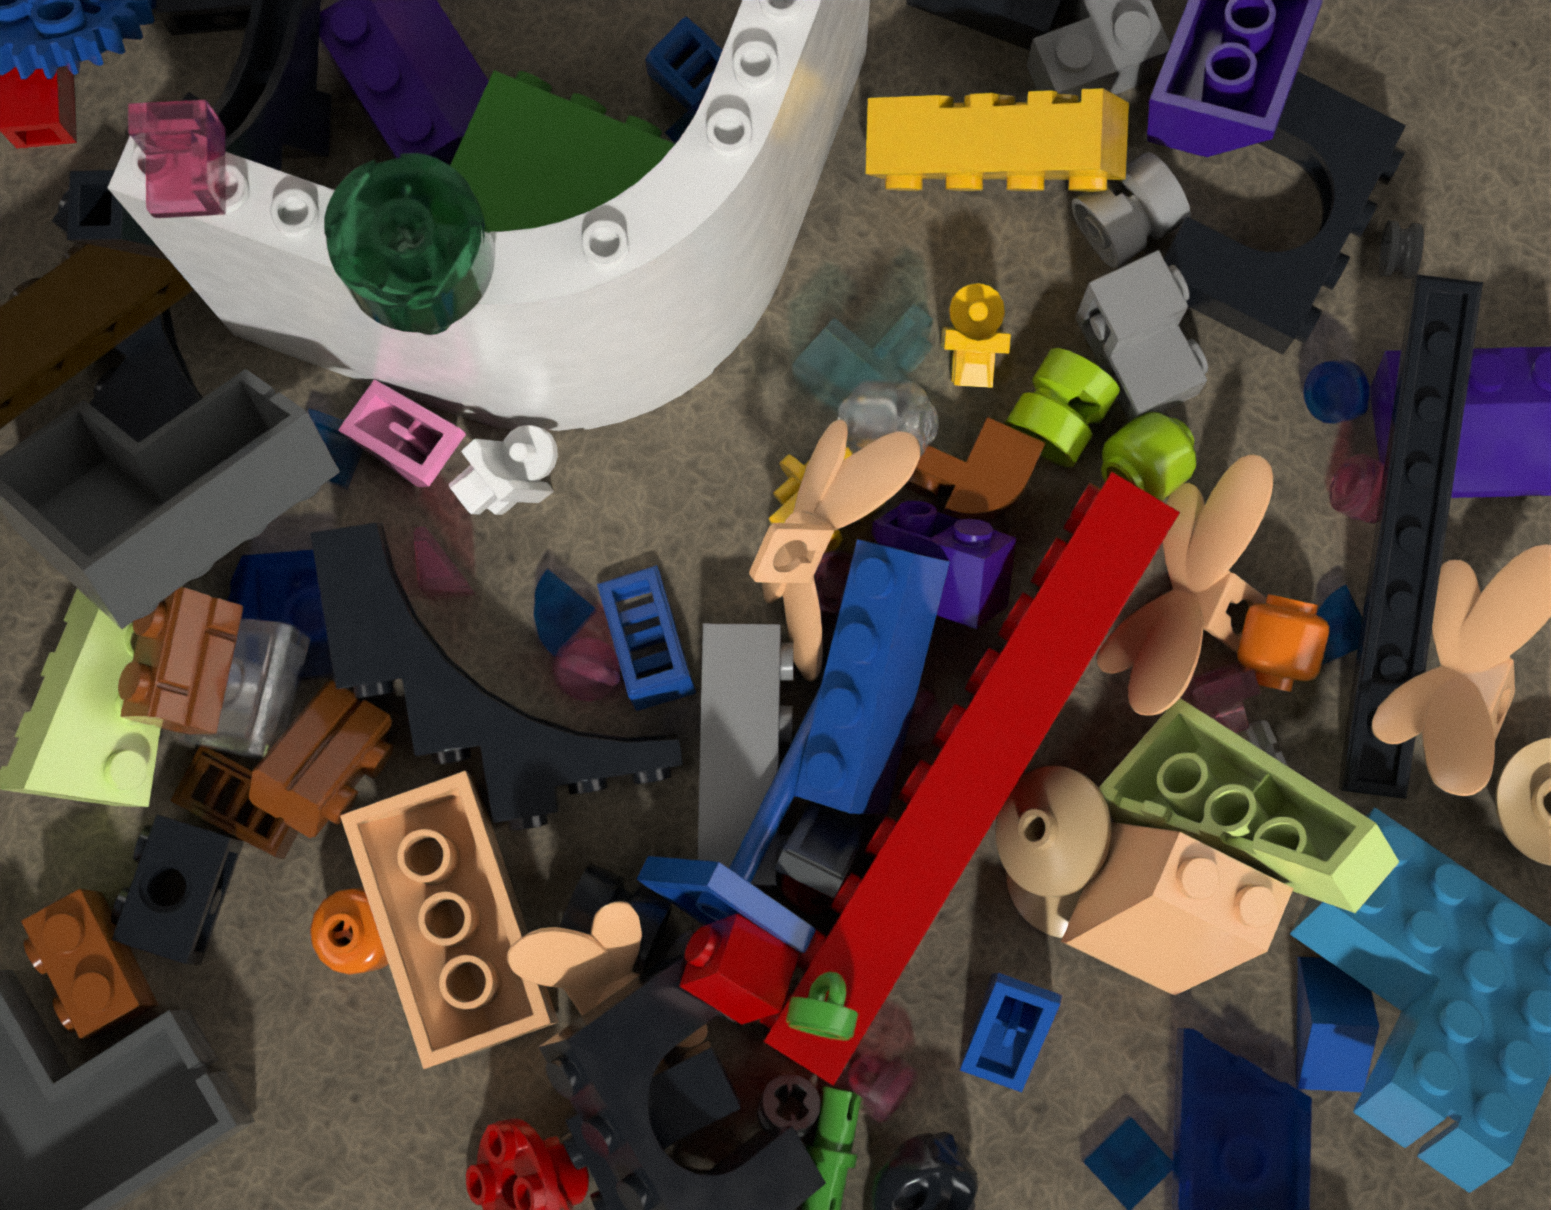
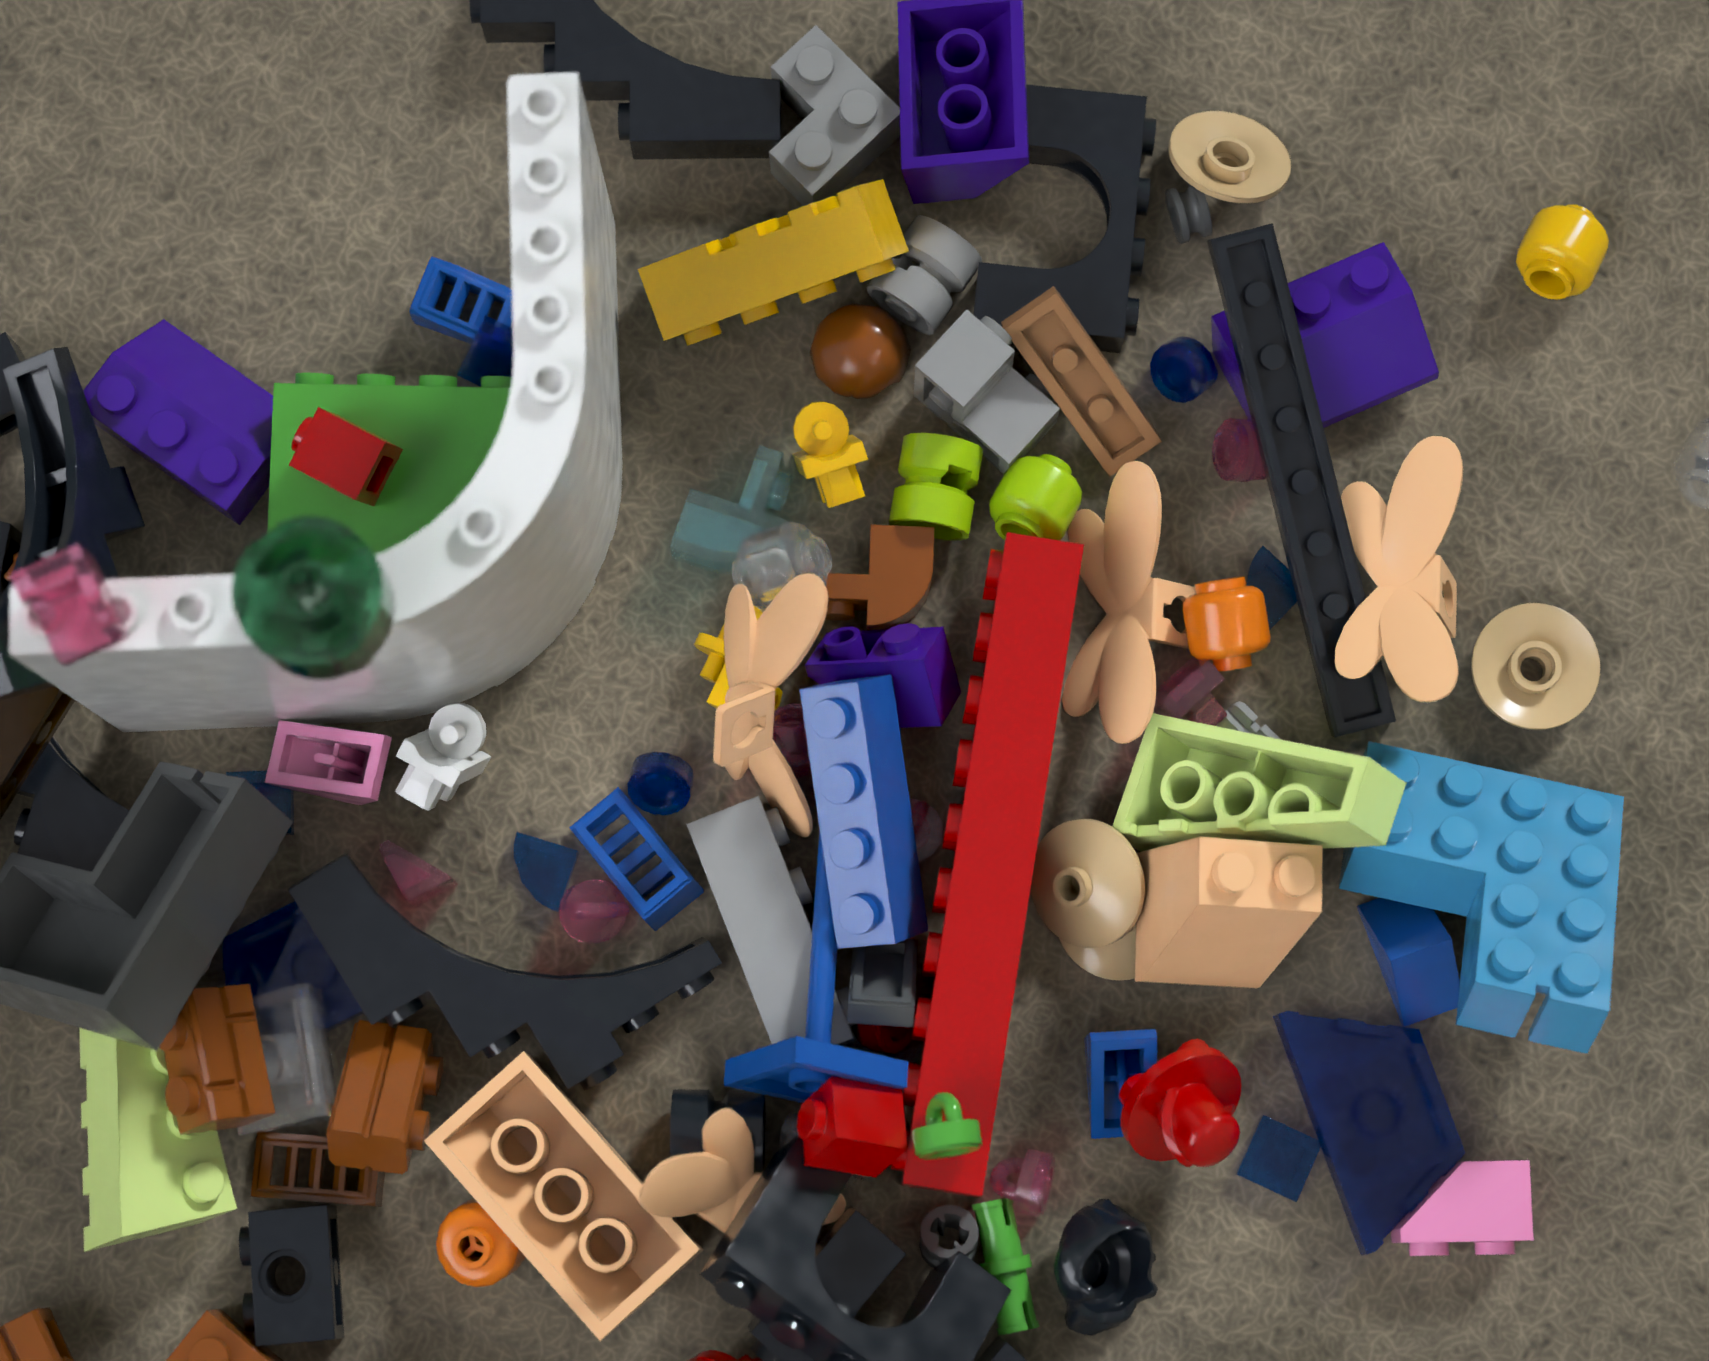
camera: 25 degrees left, 0 degrees up
(527, 158) = (343, 456): none -> red brick
(696, 577) = (660, 783): none -> clear blue tile
(1042, 257) = (859, 351): none -> dark orange hair
(1059, 1079) = (1183, 1107): none -> red plate
(1237, 362) = (1081, 381): none -> medium nougat plate
(1460, 213) = (1229, 157): none -> tan dish

